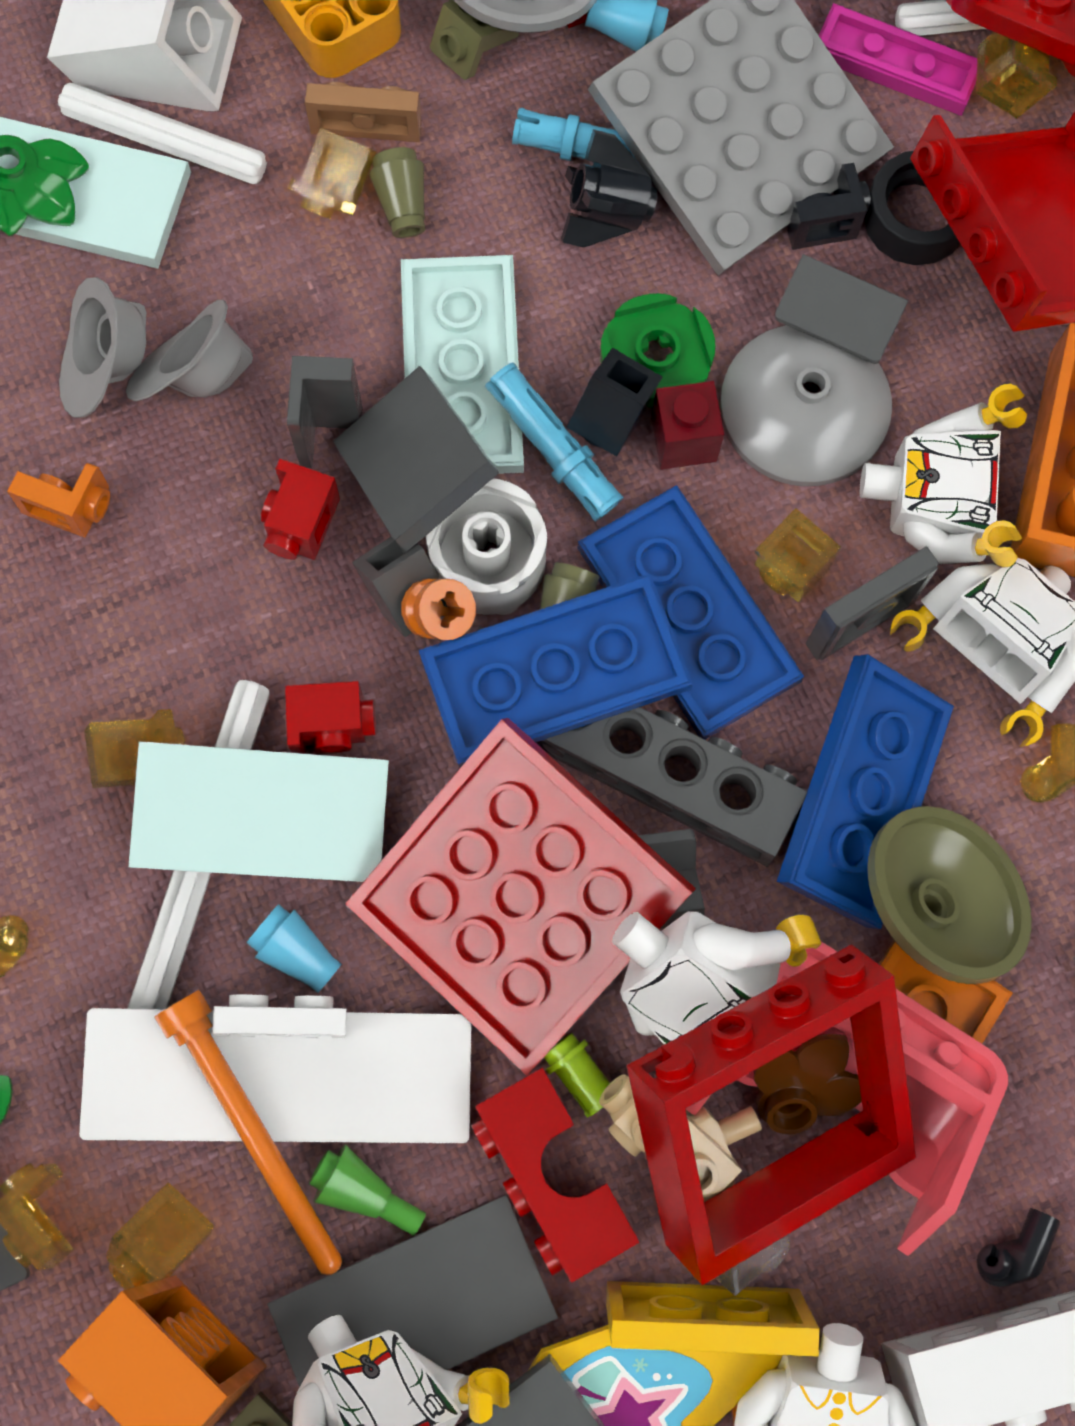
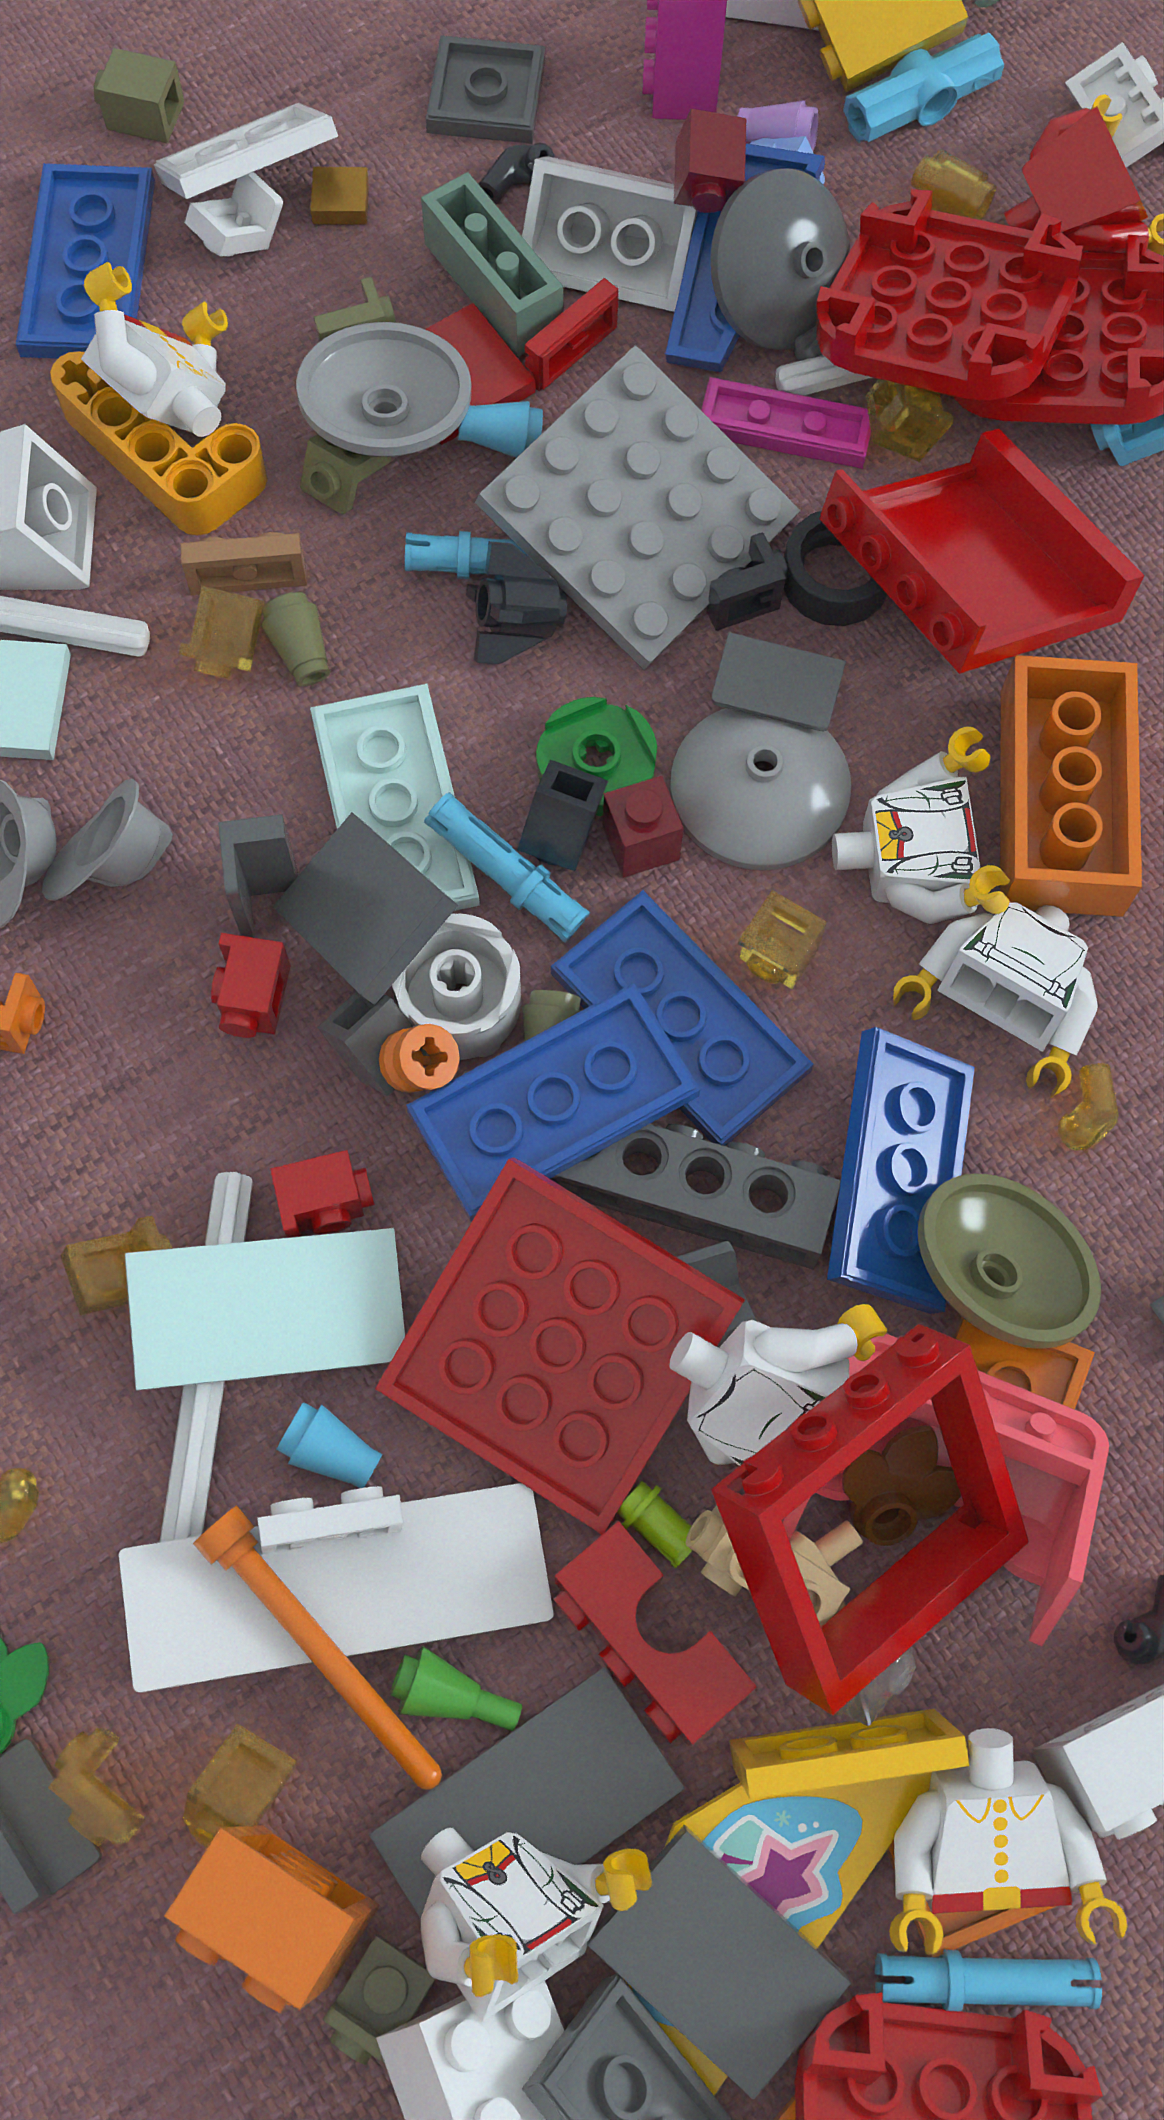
camera: 10 degrees left, 5 degrees down
(871, 604) = (869, 976): dark grey tile -> none

